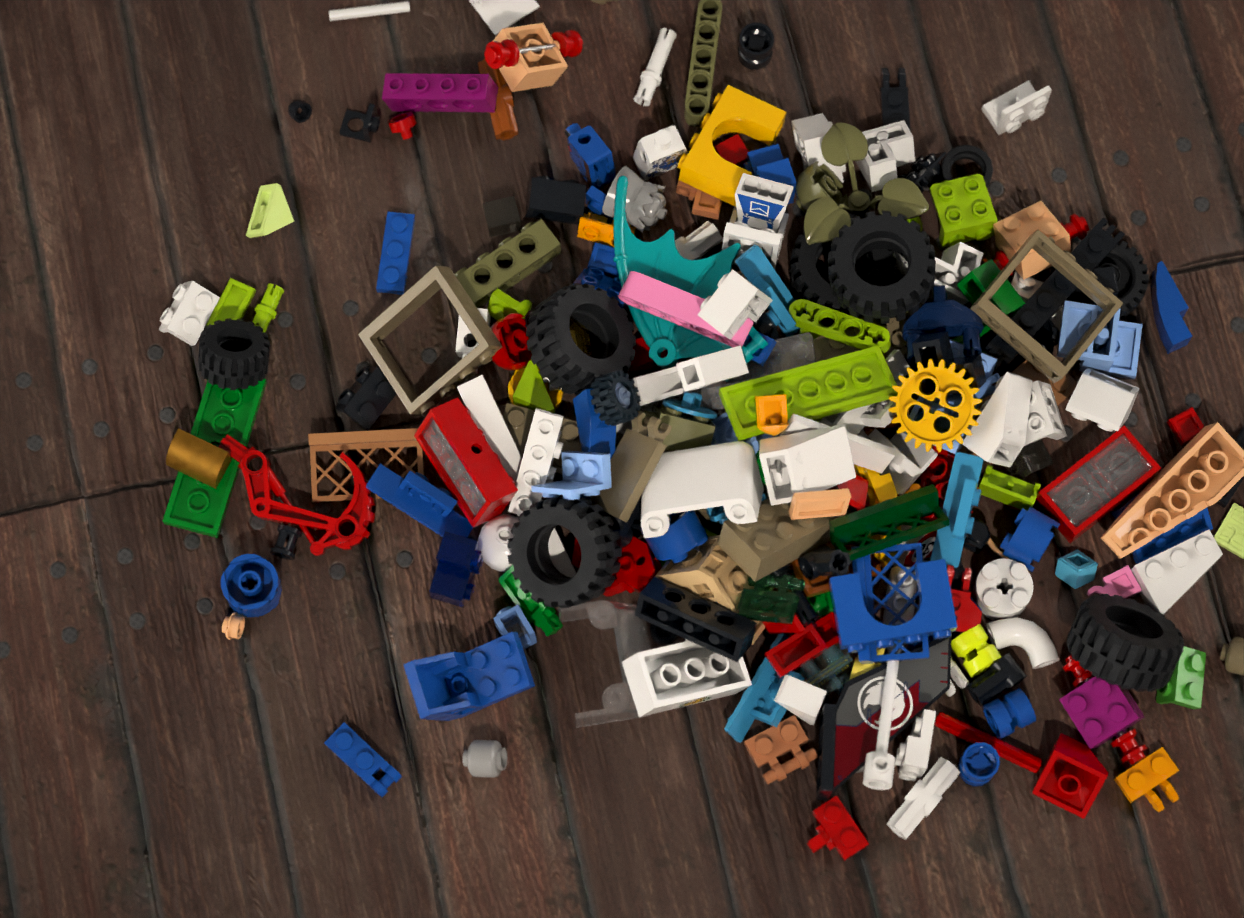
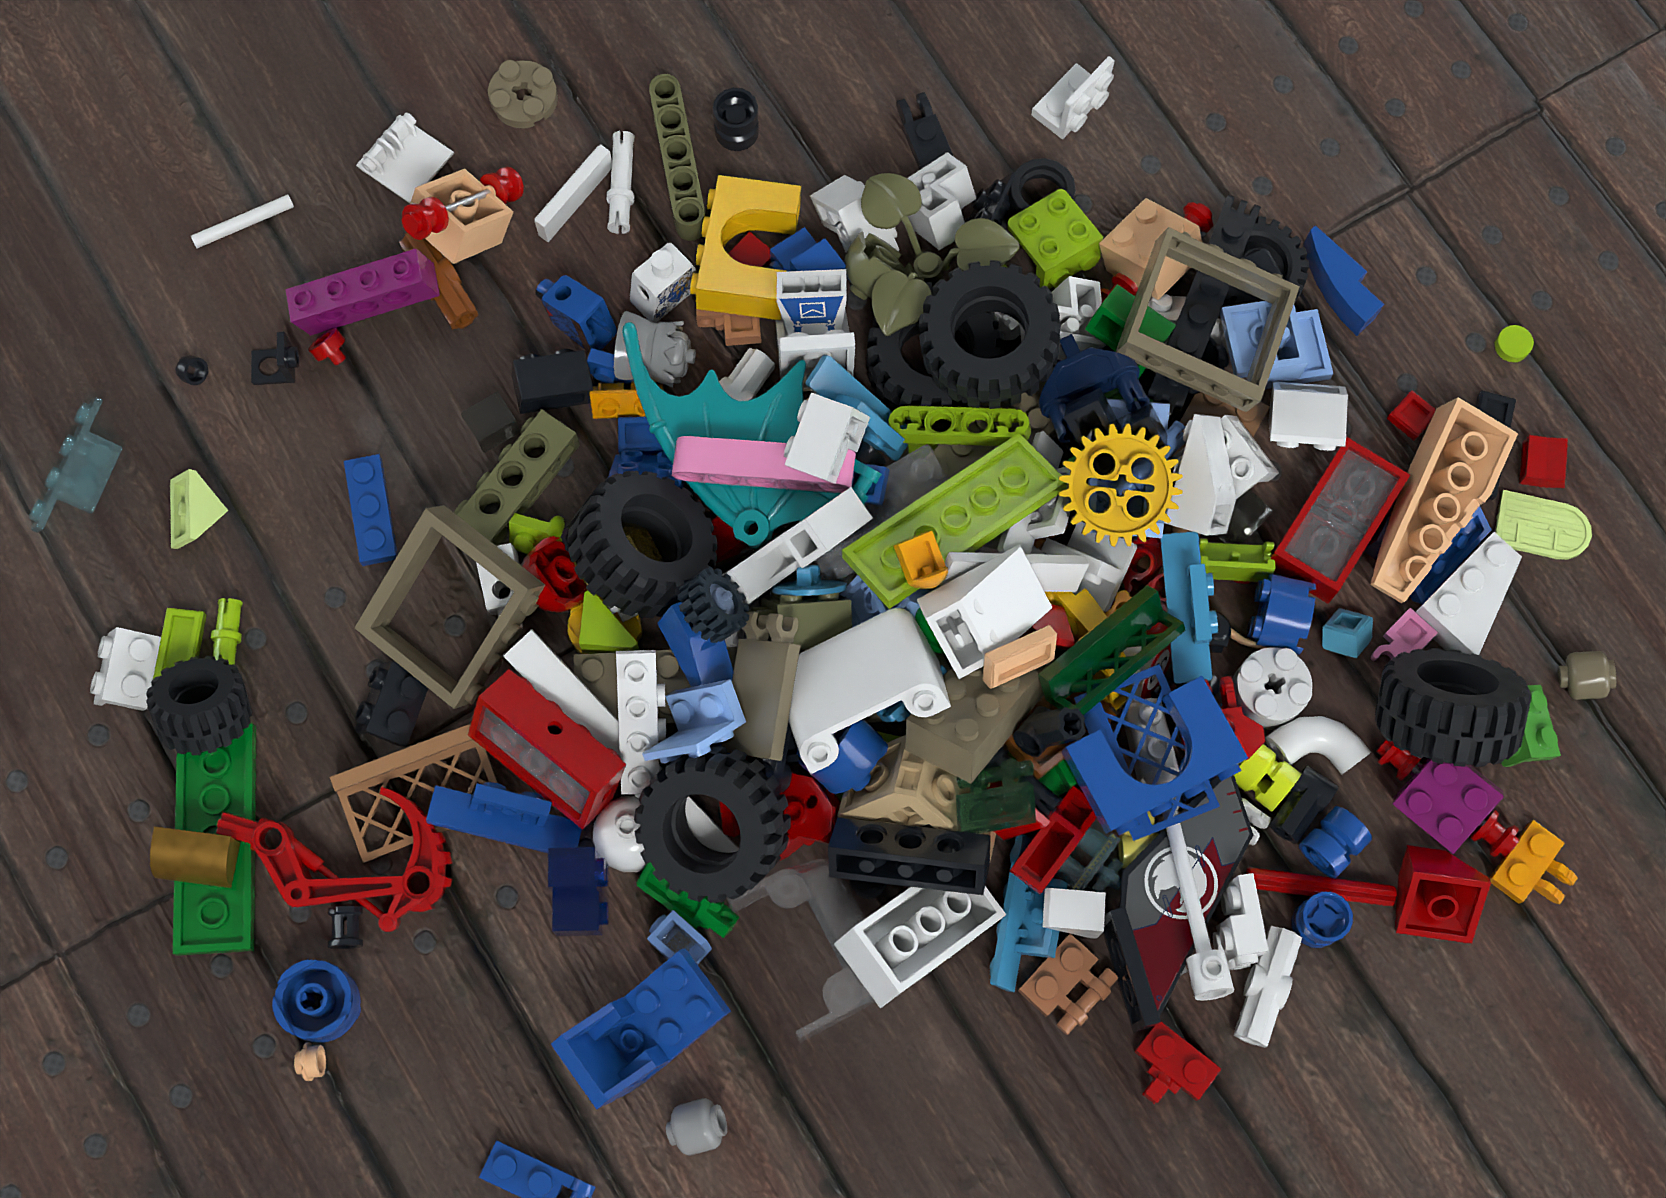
camera: 20 degrees left, 0 degrees up
(201, 158) = (83, 470): none -> clear light blue bracket
(617, 64) = (573, 193): none -> white tile

